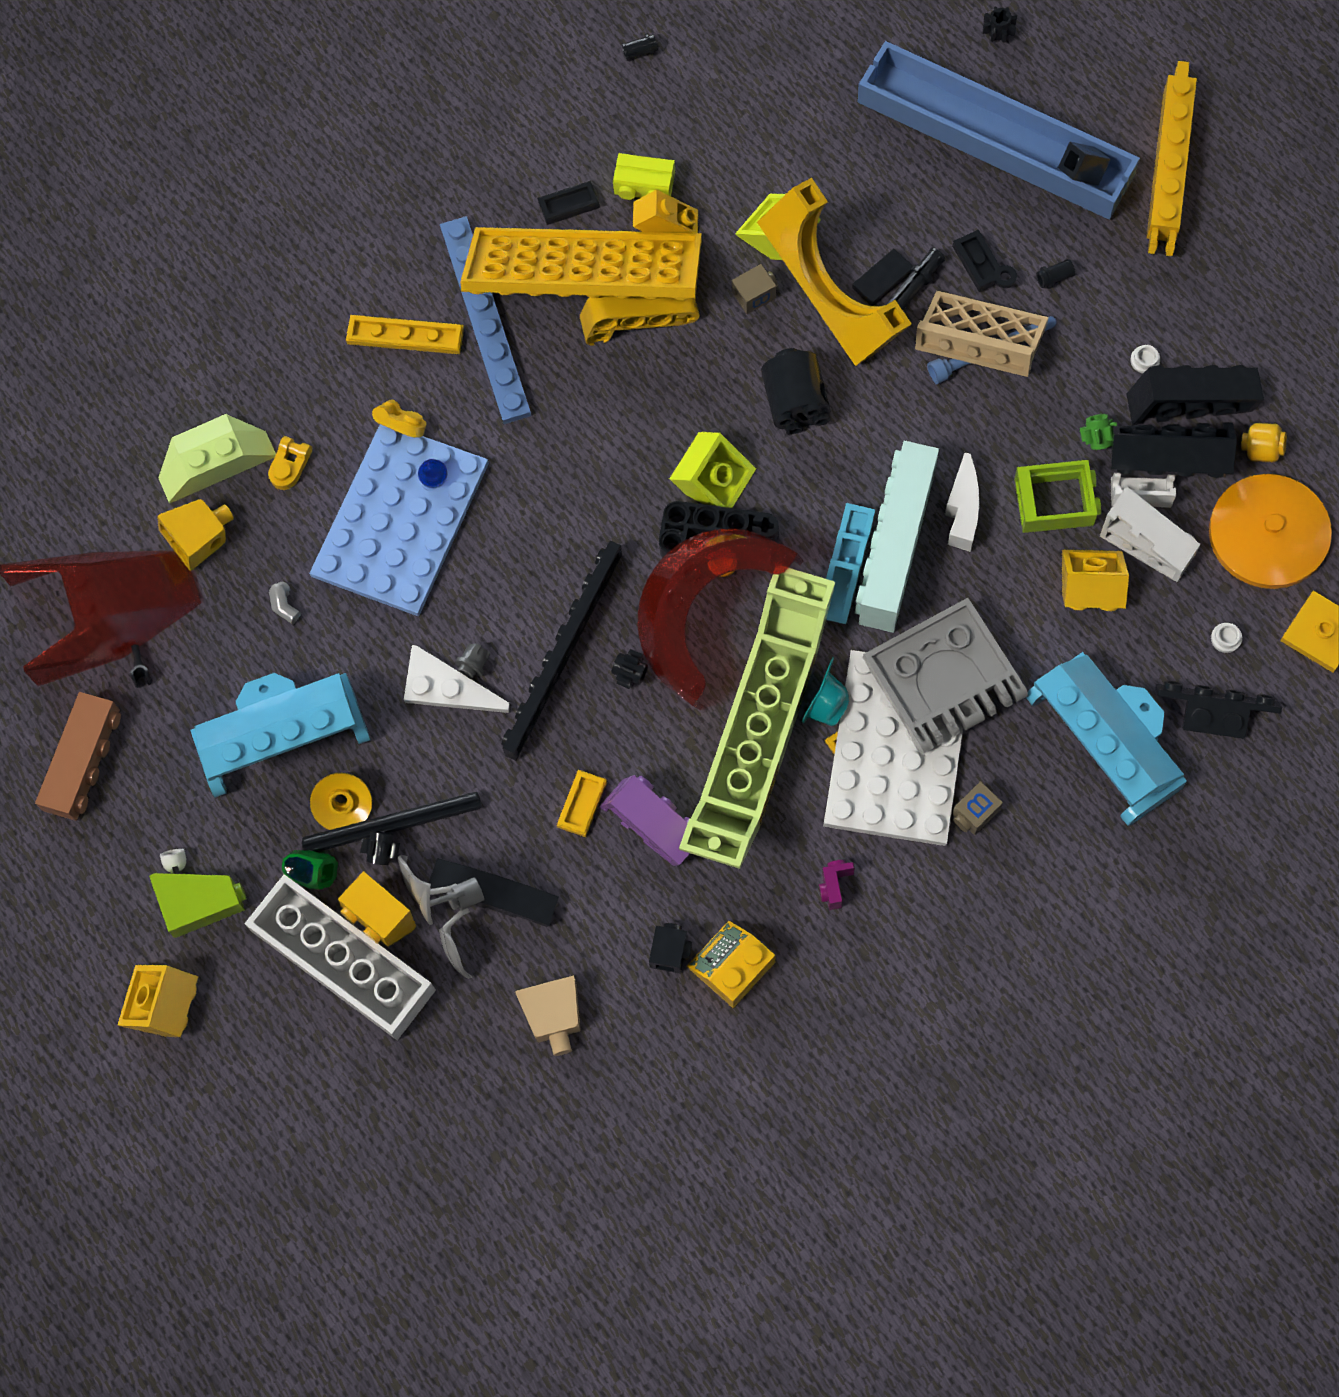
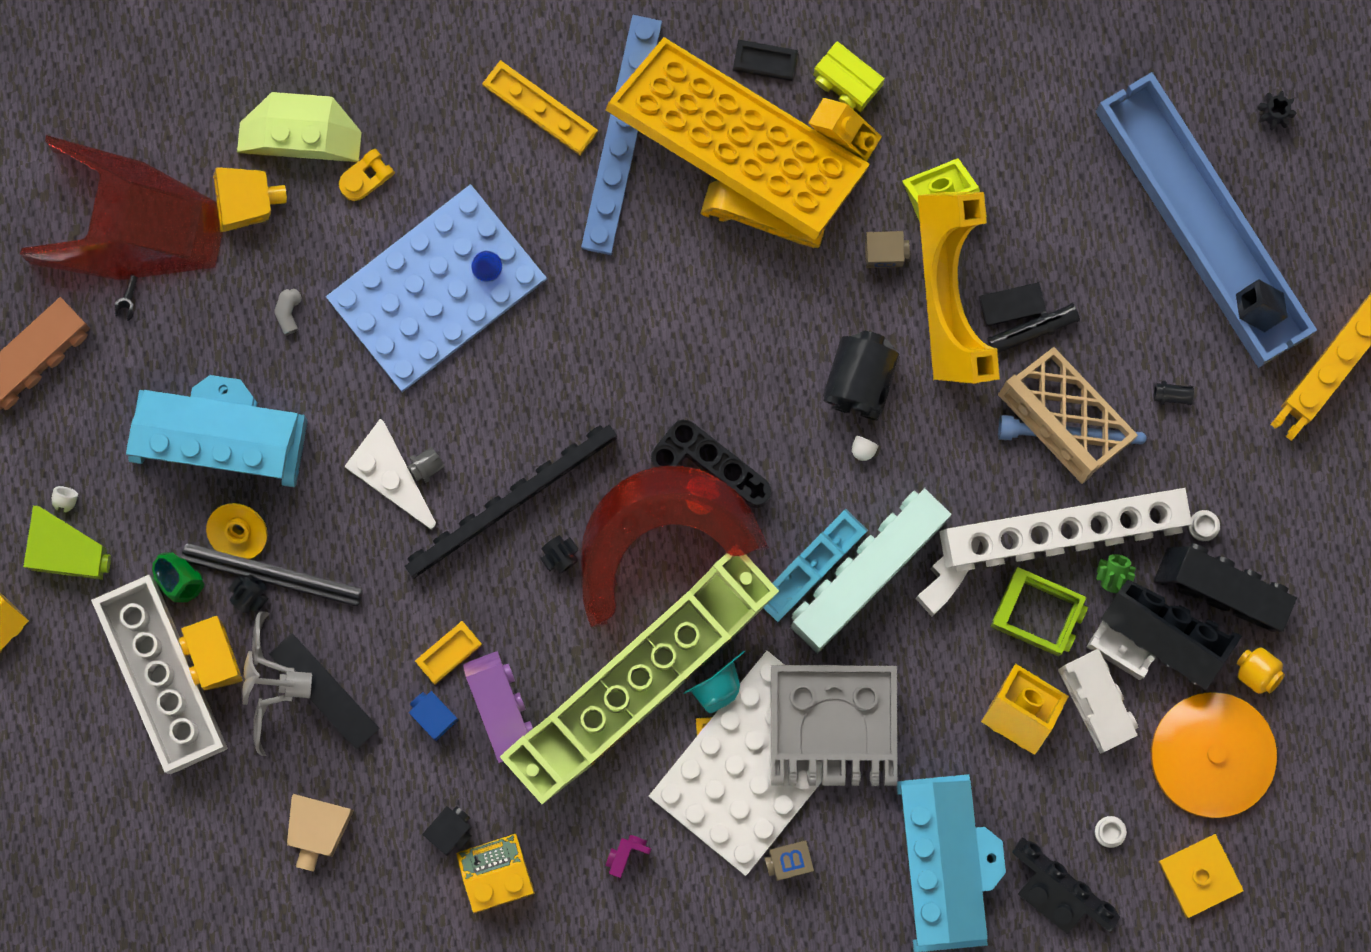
camera: 20 degrees right, 10 degrees up
(402, 421) = (487, 193): yellow plate -> none
(598, 860) = (432, 714): none -> blue brick
(713, 471) = (742, 409): neon yellow slope -> none
(832, 449) = (863, 448): none -> white hinge
(981, 262) = (1110, 343): black hinge -> none
(1108, 355) = (1171, 505): none -> white brick

